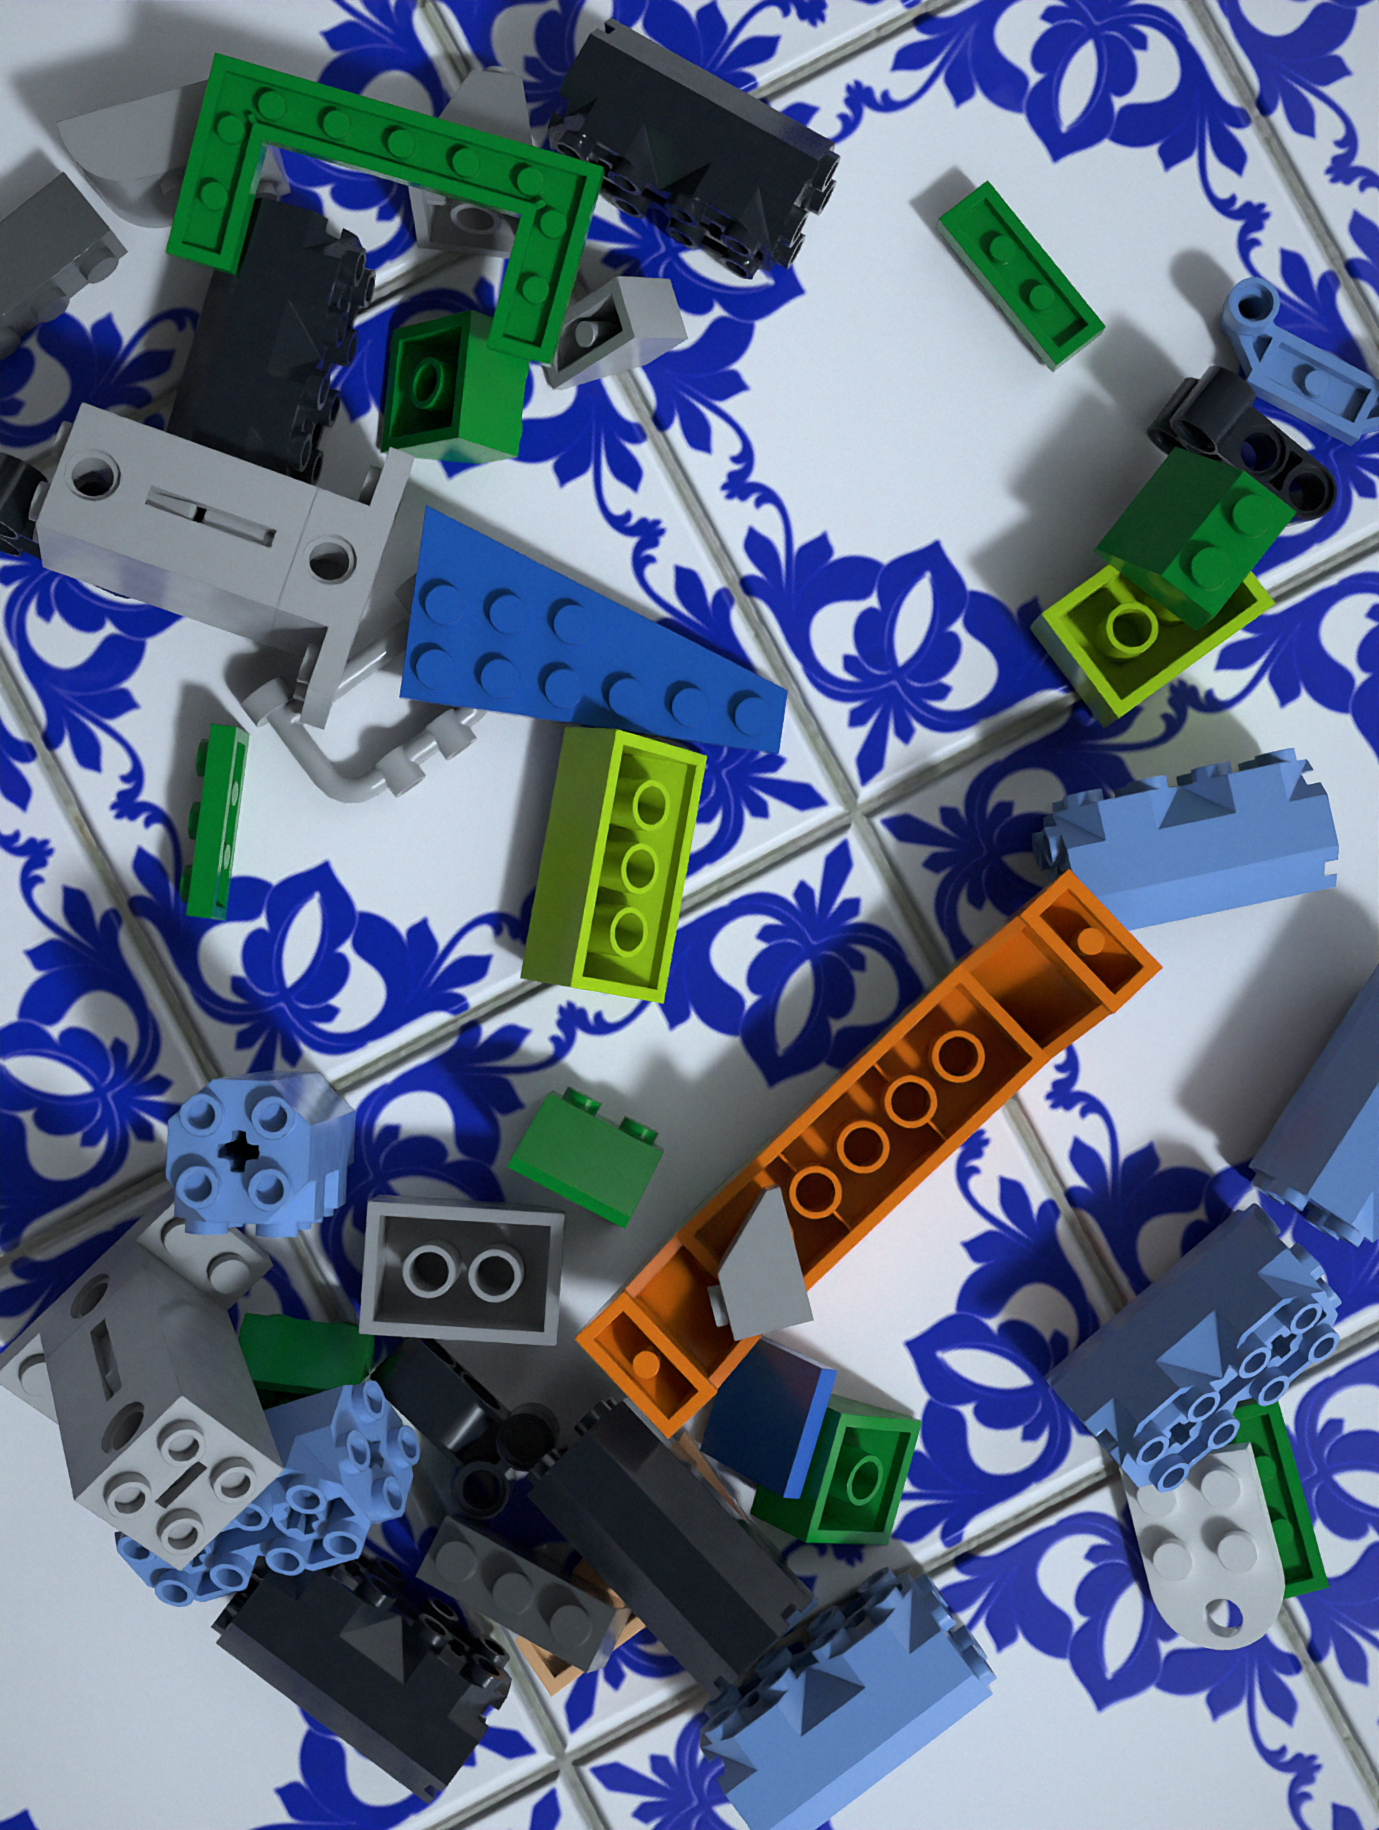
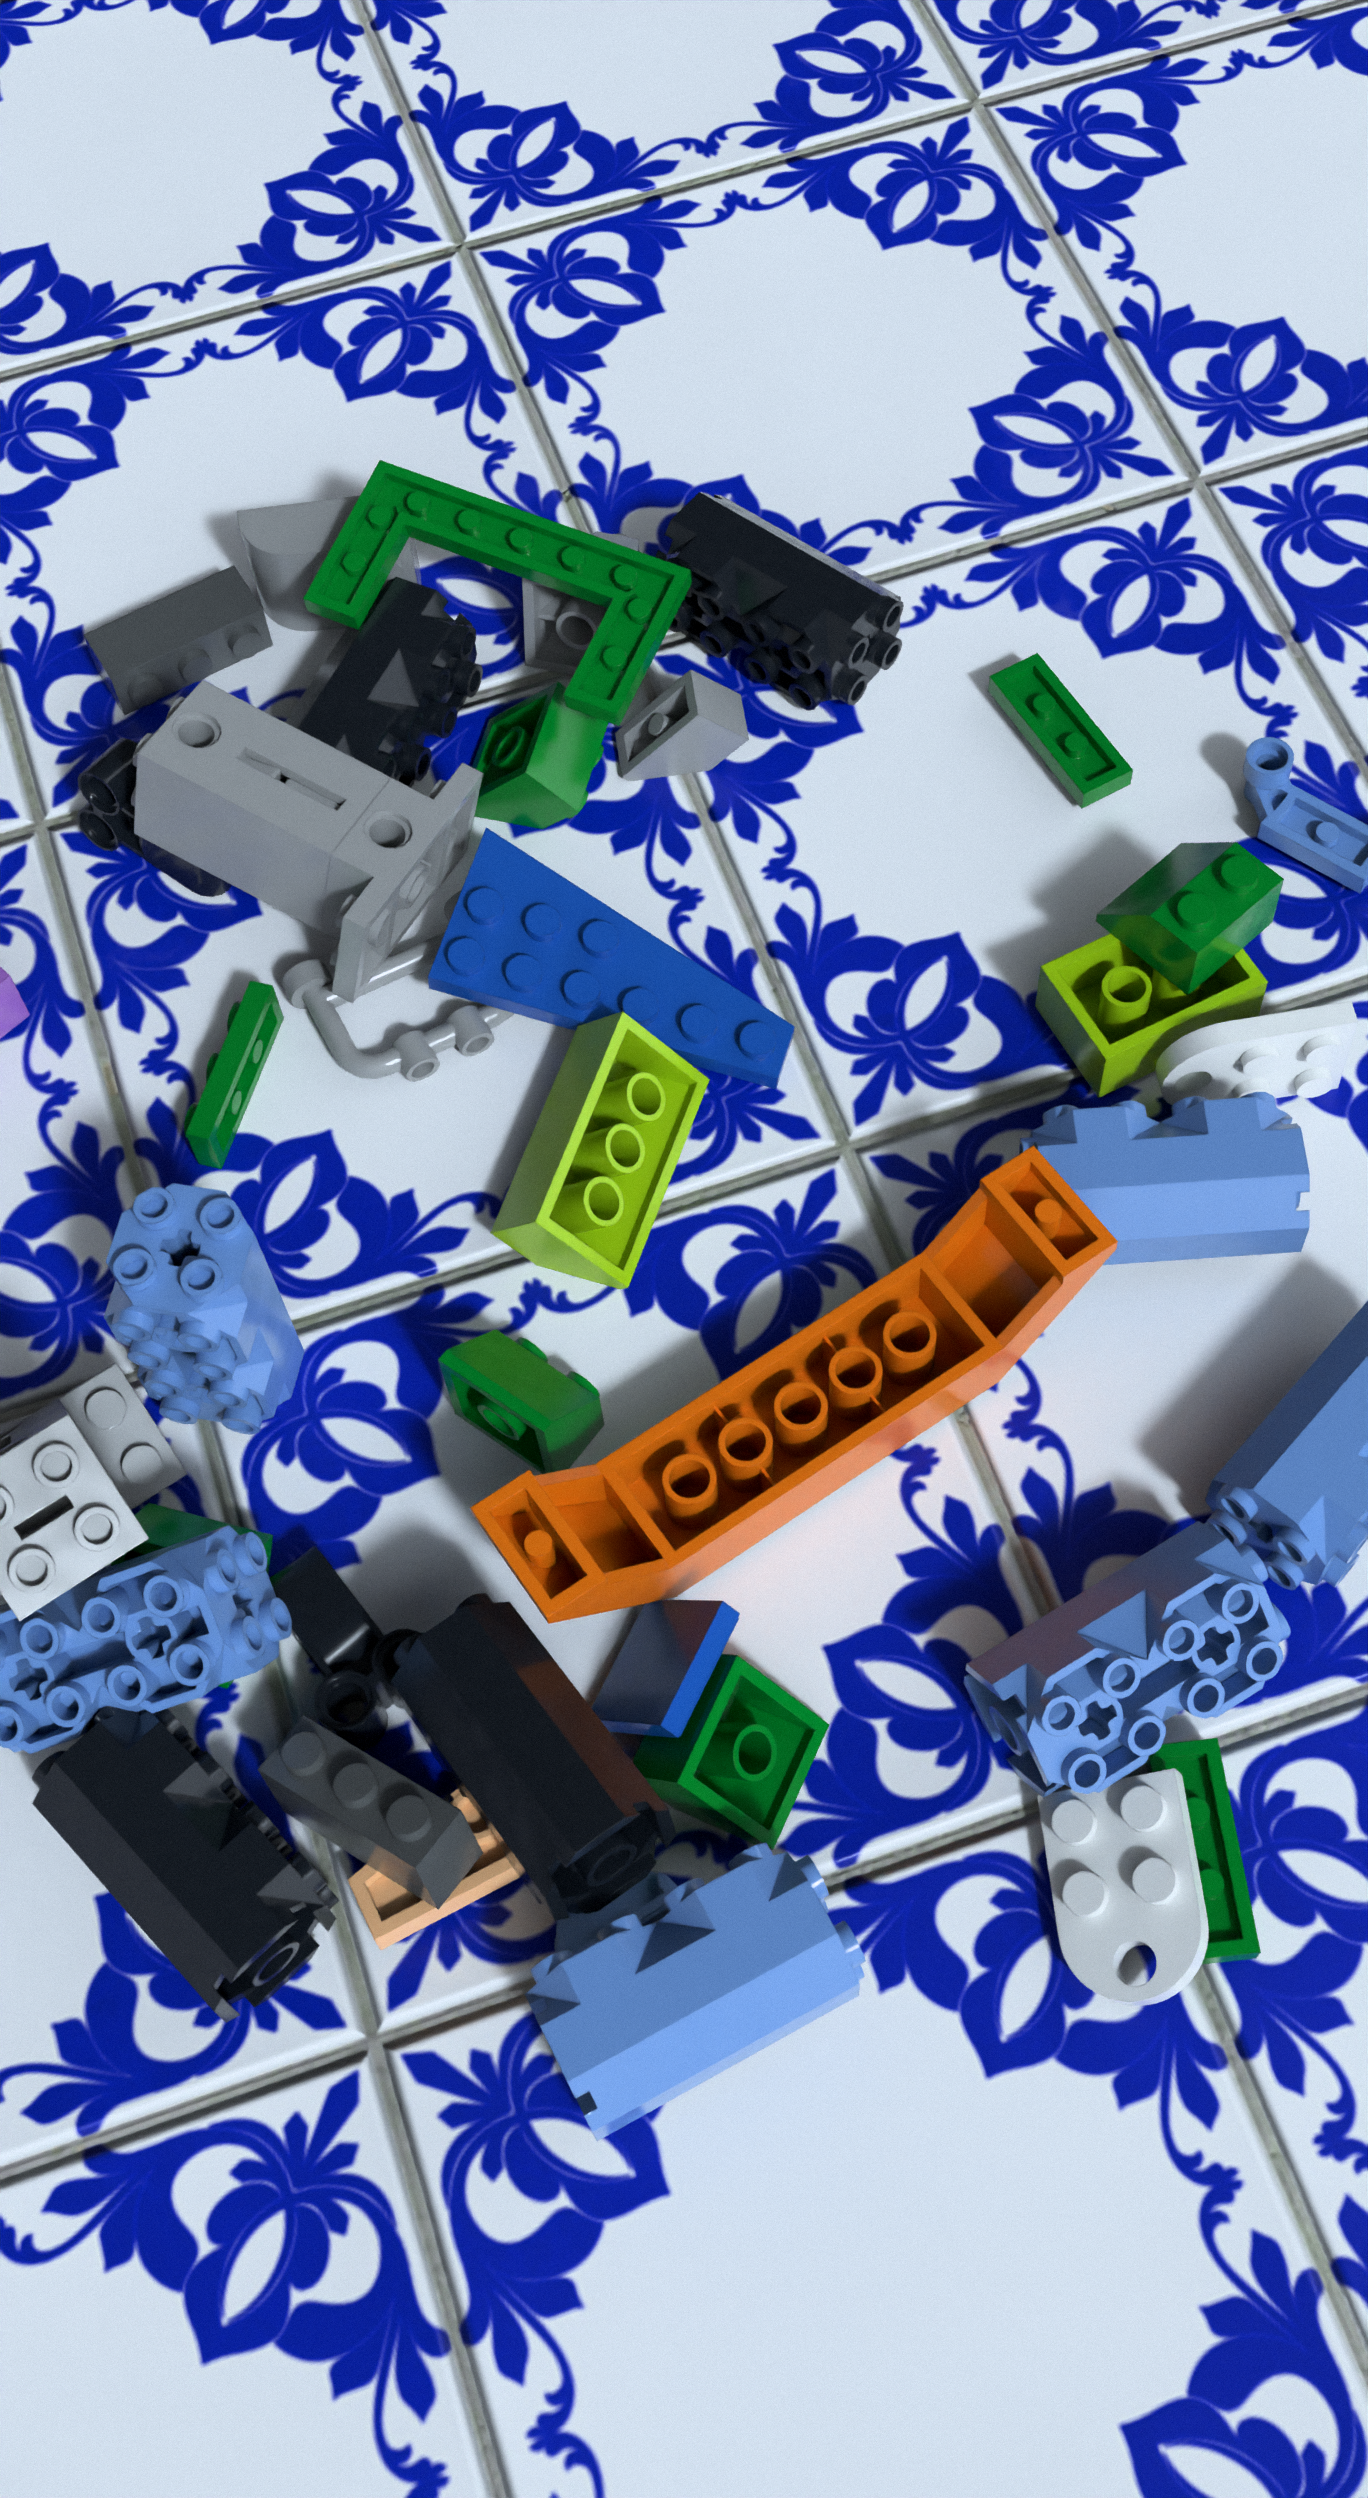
camera: 10 degrees right, 25 degrees down
(462, 1270) = (372, 1485): light grey brick -> none
(761, 1273) = (673, 1491): light grey slope -> none
(1214, 420) = (1235, 817): black piece -> none
(1274, 687) = (1270, 1053): none -> white plate

